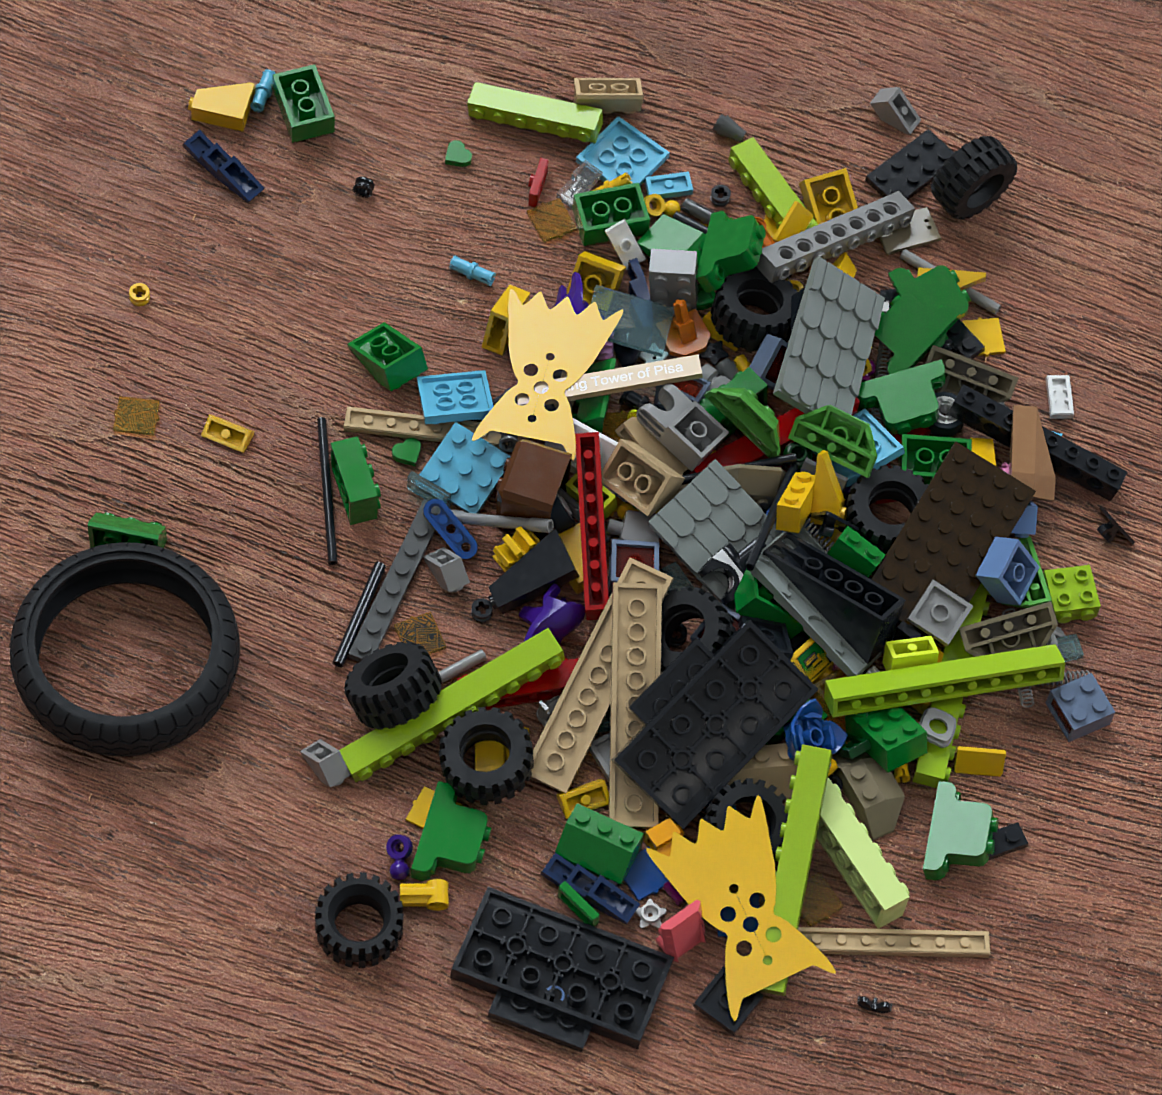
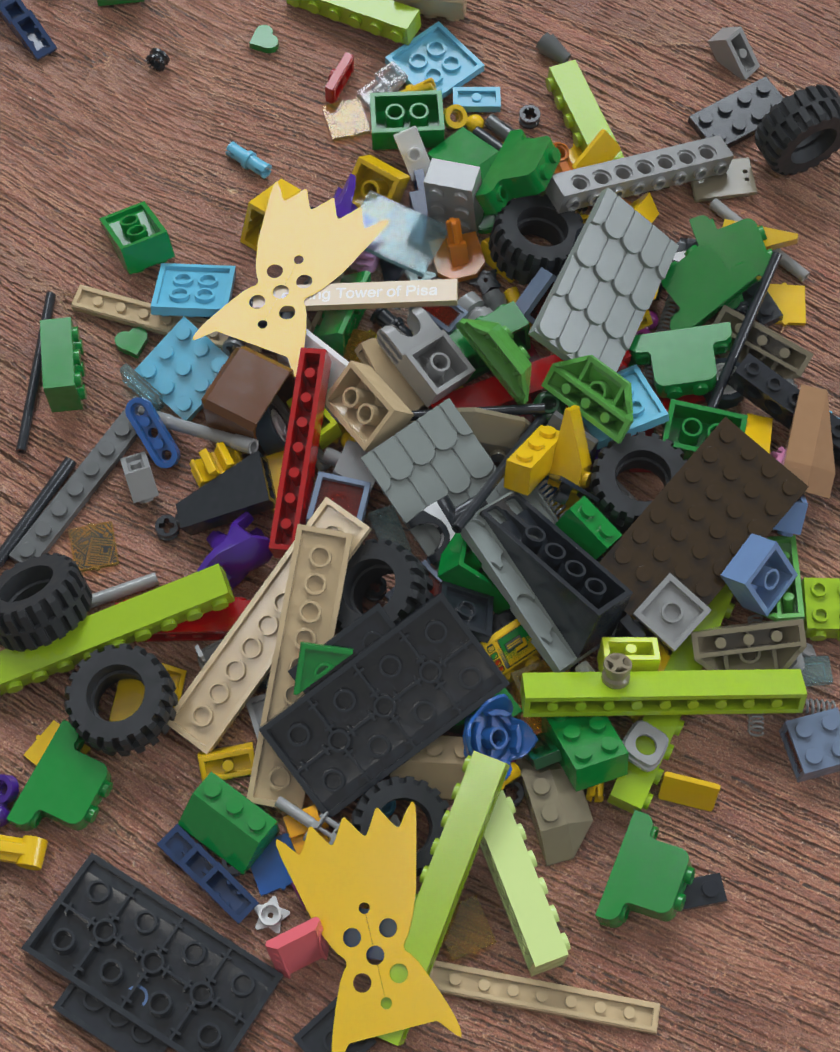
camera: 15 degrees right, 5 degrees up
(577, 904) = (187, 892): green tile -> none
(652, 695) = (316, 661): none -> green tile
(668, 829) = (308, 820): none -> light grey piece
(828, 195) = (643, 129): yellow slope -> none
(904, 666) = (616, 671): none -> dark tan wheel
(955, 364) = (744, 330): none -> black piece

